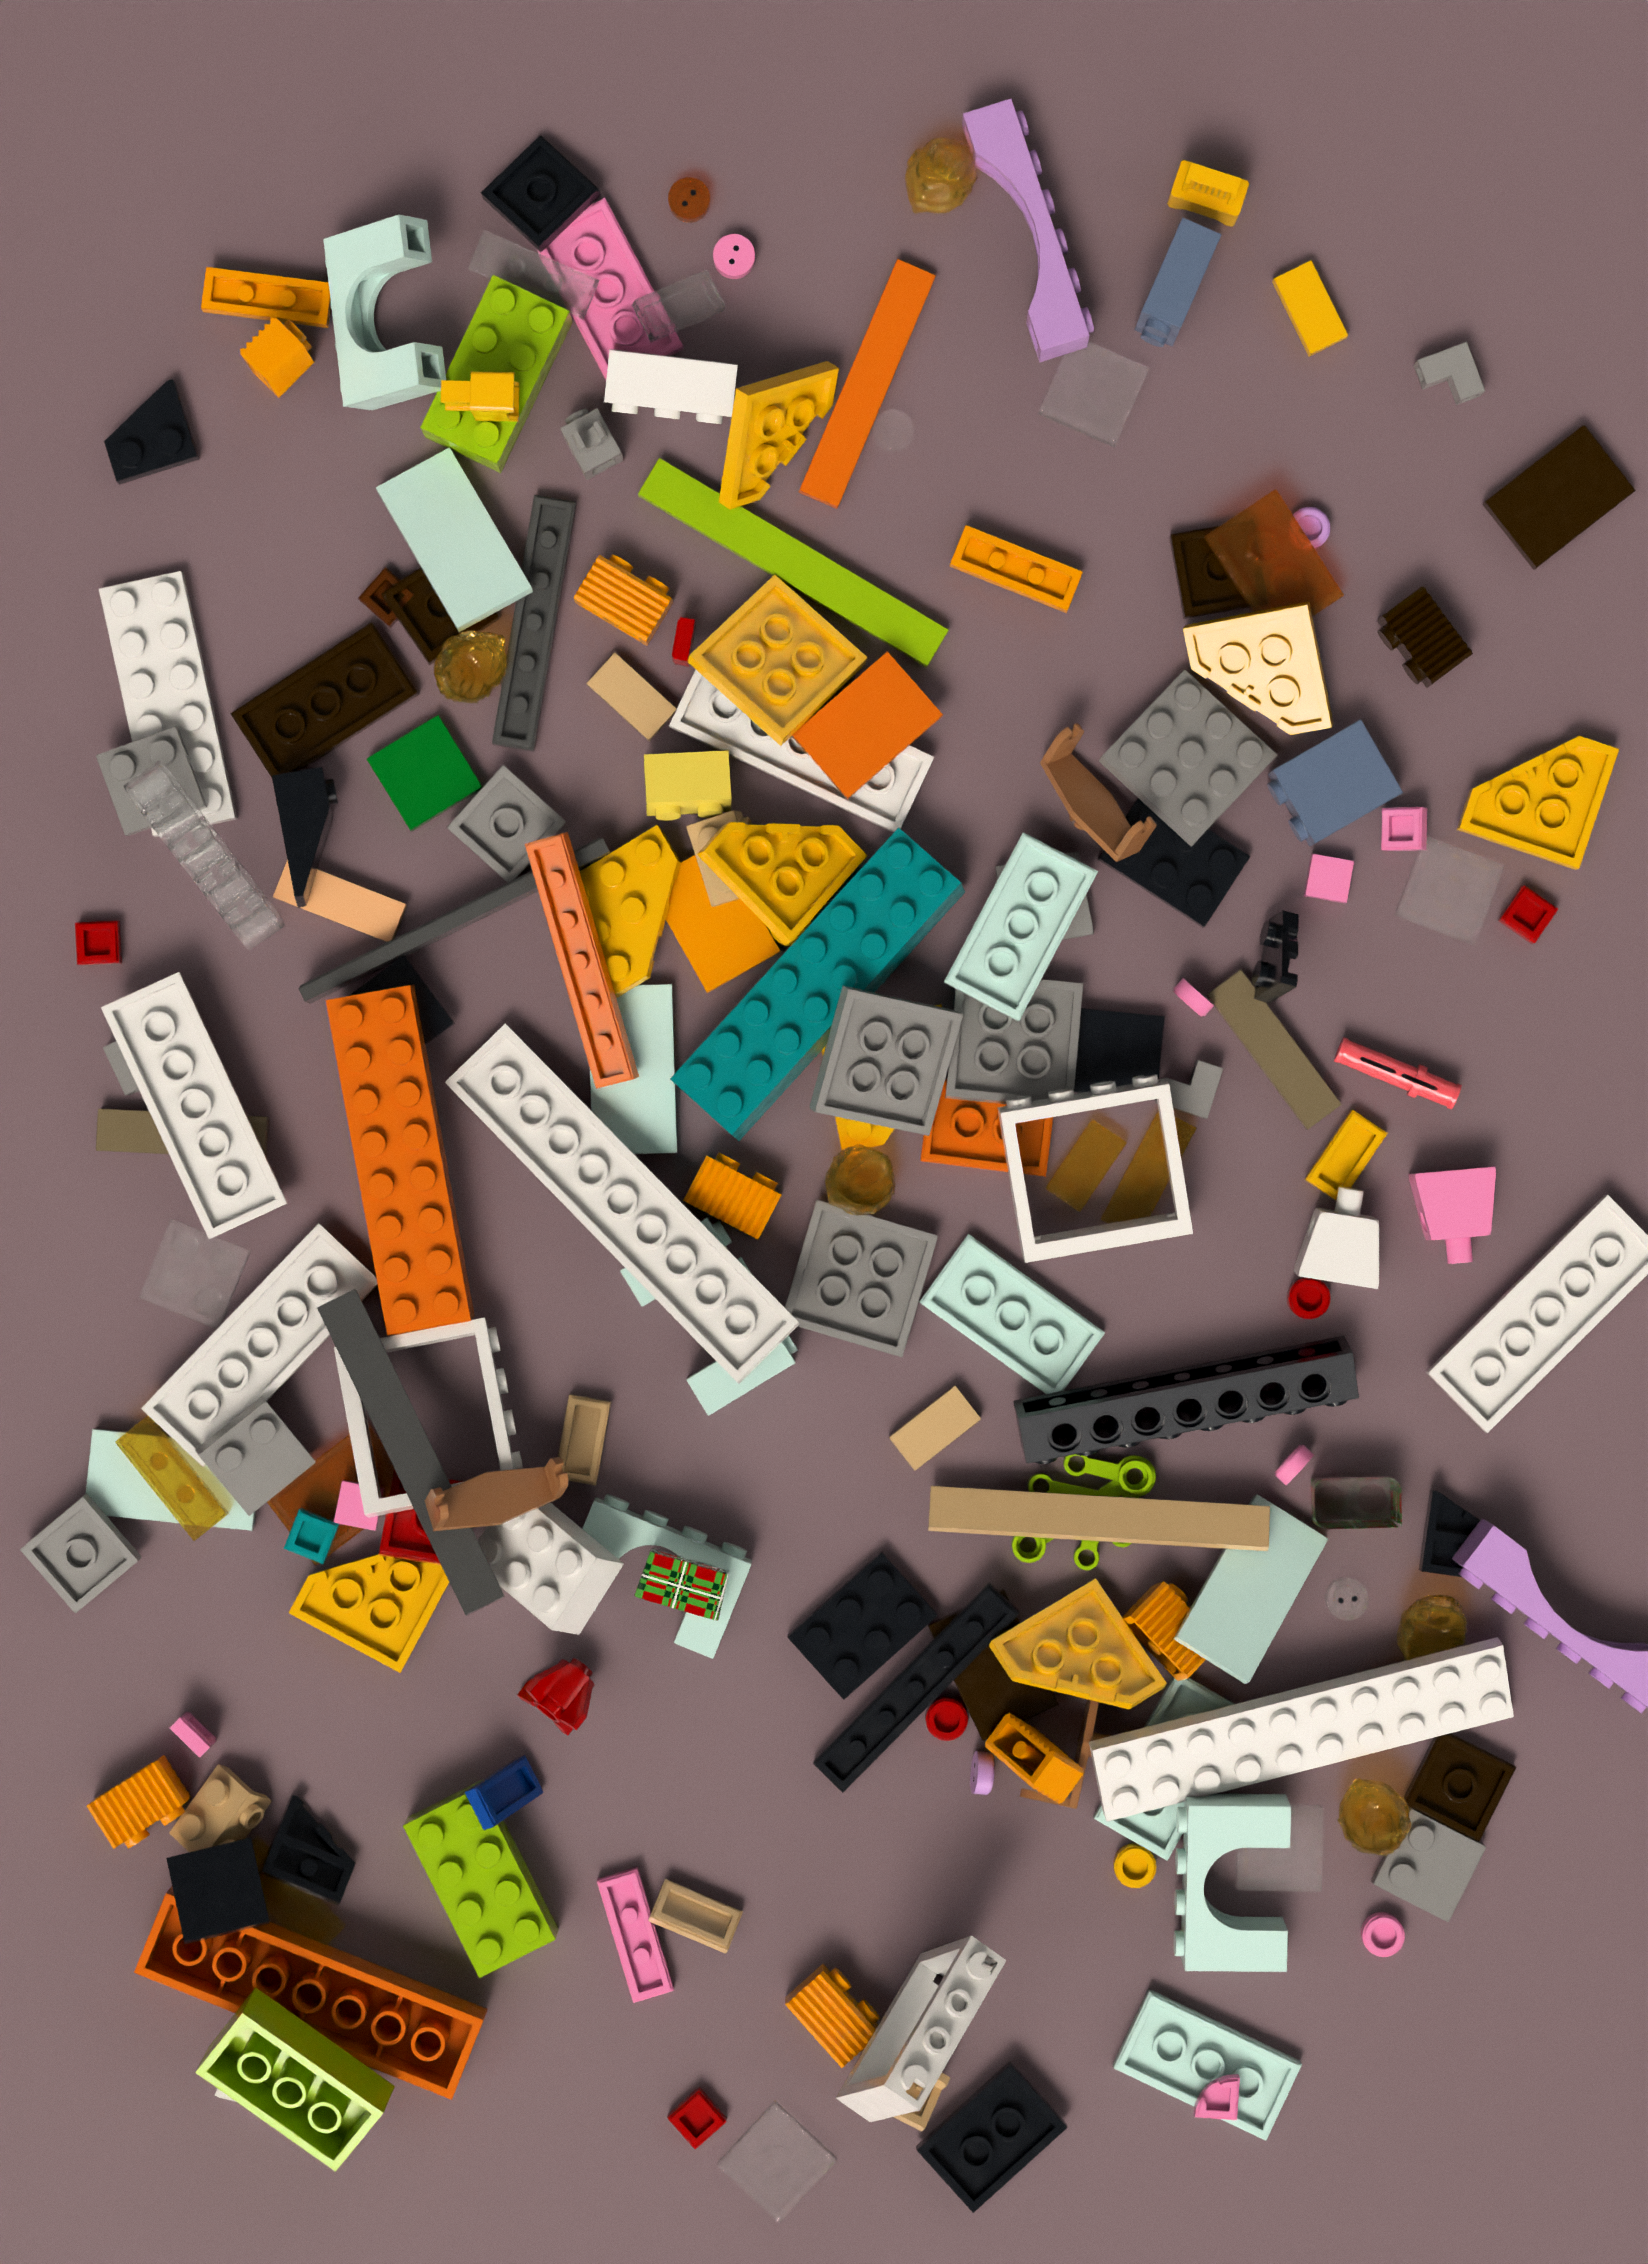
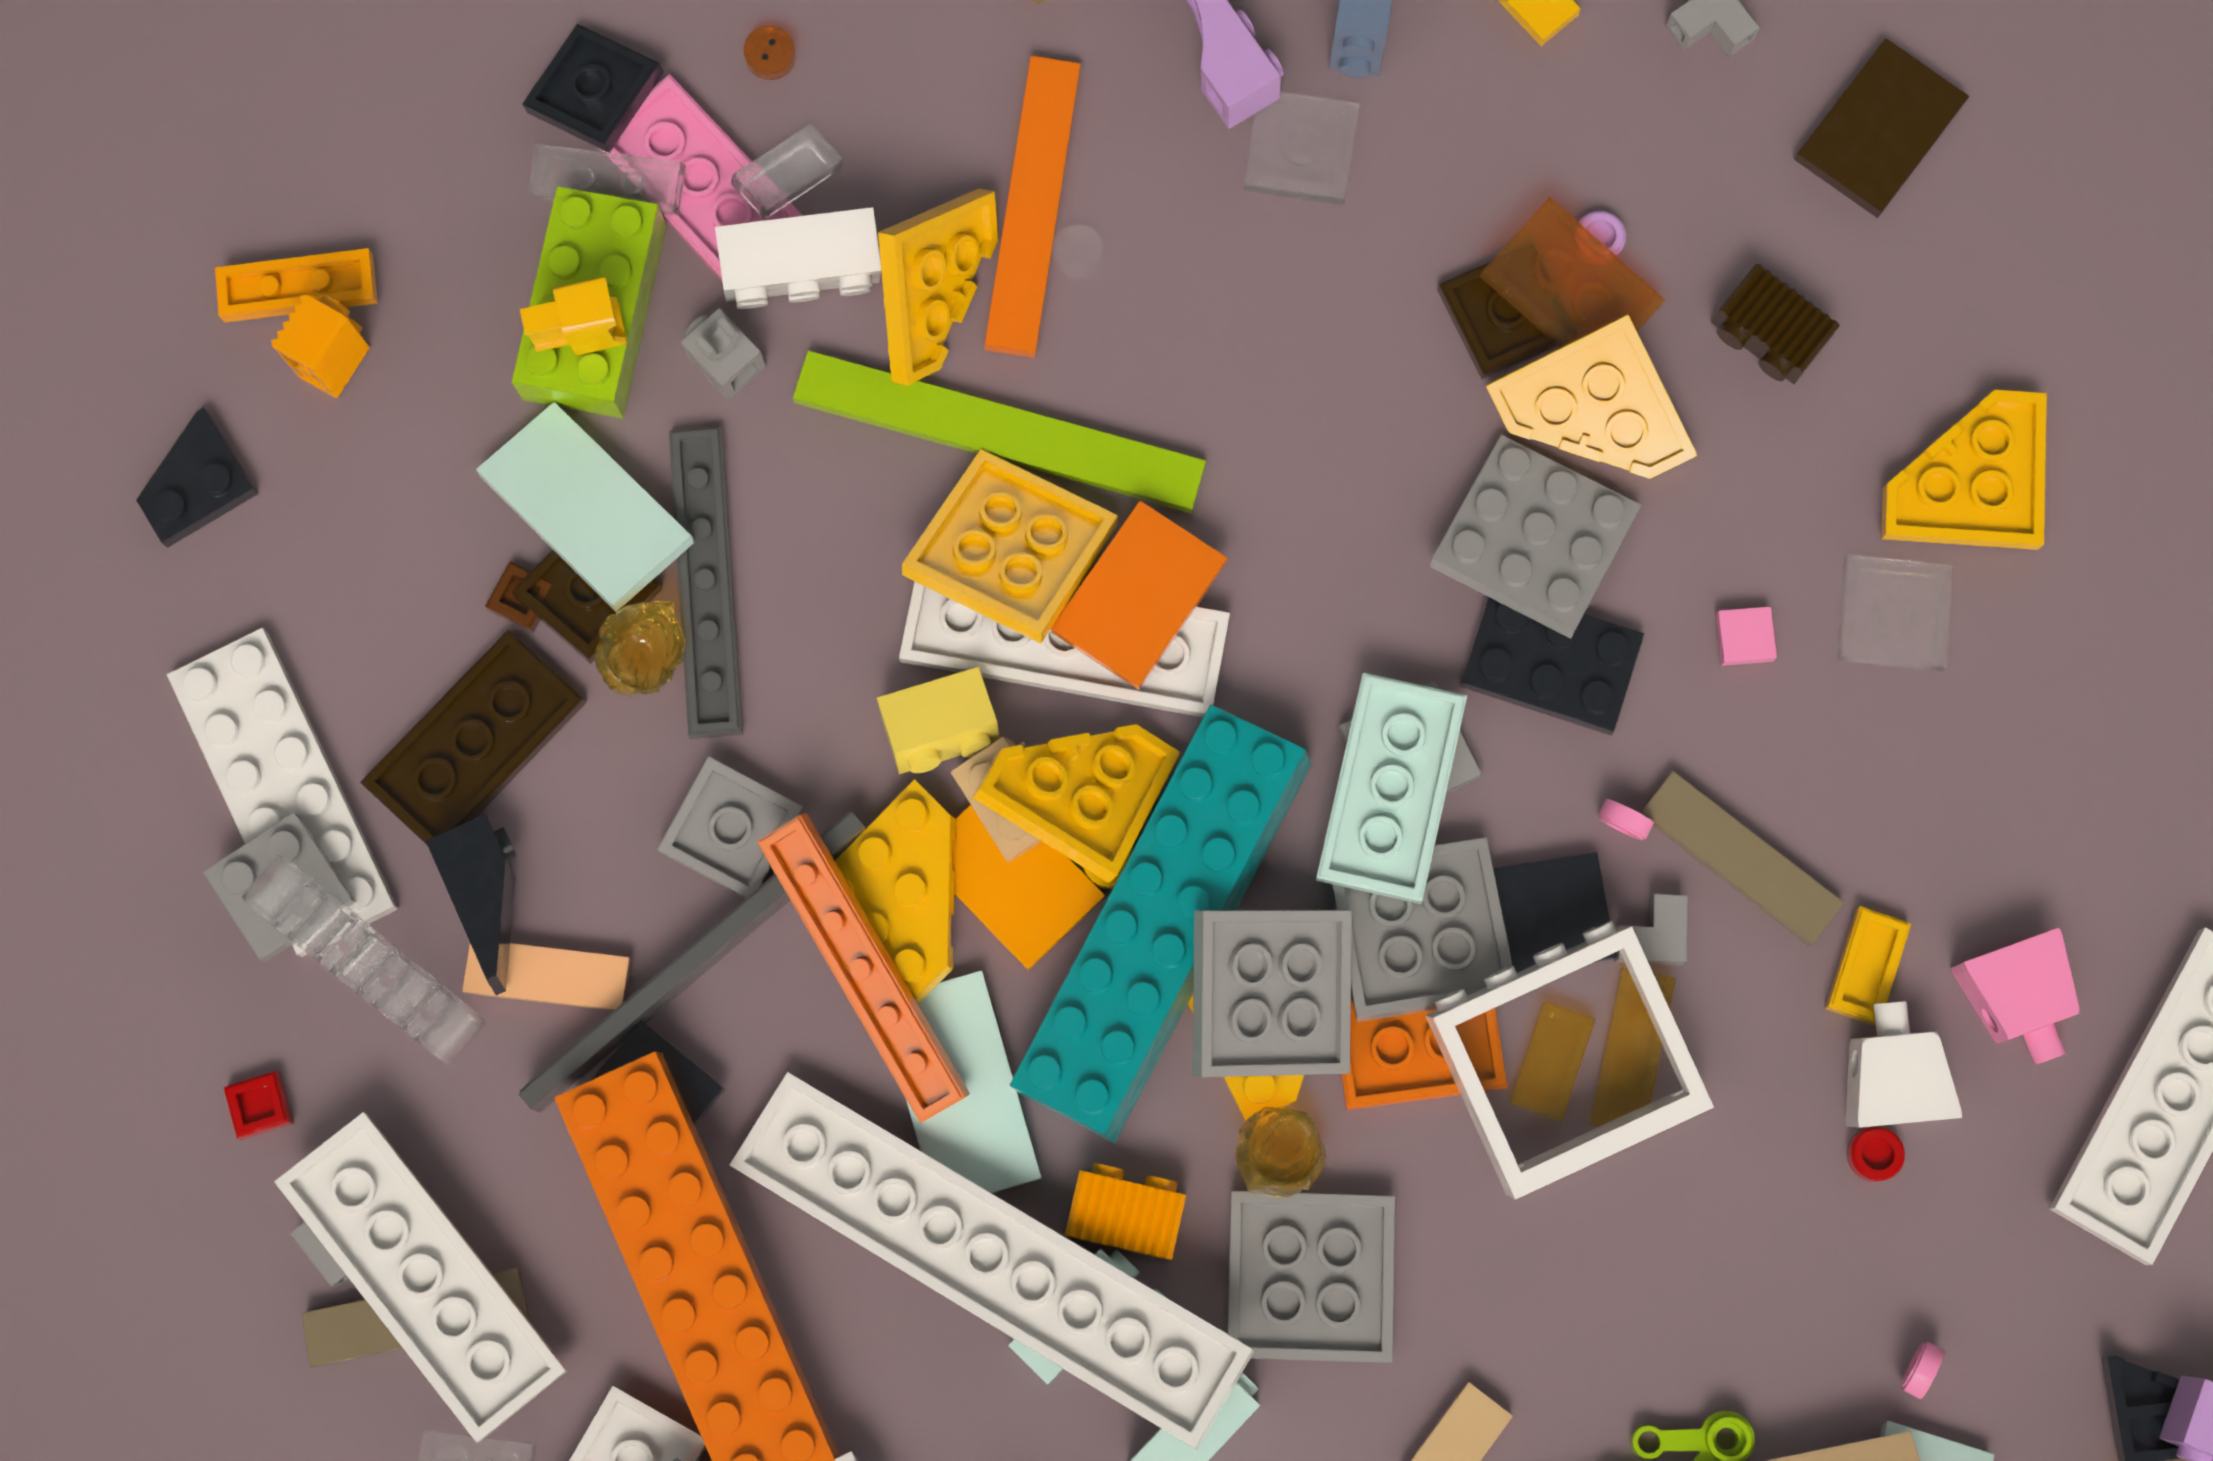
camera: 15 degrees left, 10 degrees down
(357, 269) = (395, 225): light aqua arch -> none
(424, 773) = (615, 793): green tile -> none
(623, 598) = (806, 523): light orange brick -> none
(632, 697) = (845, 637): tan tile -> none
(683, 641) = (891, 554): red tile -> none
(734, 256) = (838, 102): bright pink tile -> none
(1011, 1316) = (1515, 1276): light aqua tile -> none
(1016, 569) = (1267, 370): light orange plate -> none
(1090, 801) = (1433, 617): medium nougat piece -> none
(1166, 1389) = (1735, 1318): black brick -> none
(1280, 945) = (1715, 759): black wing -> none
(1333, 784) = (1719, 521): sand blue brick -> none
(1382, 1519) = (2063, 1396): clear piece -> none
(1404, 829) = (1819, 553): bright pink tile -> none
(1443, 1092) = (1963, 856): coral pin -> none
(1528, 914) = (1998, 617): red tile -> none

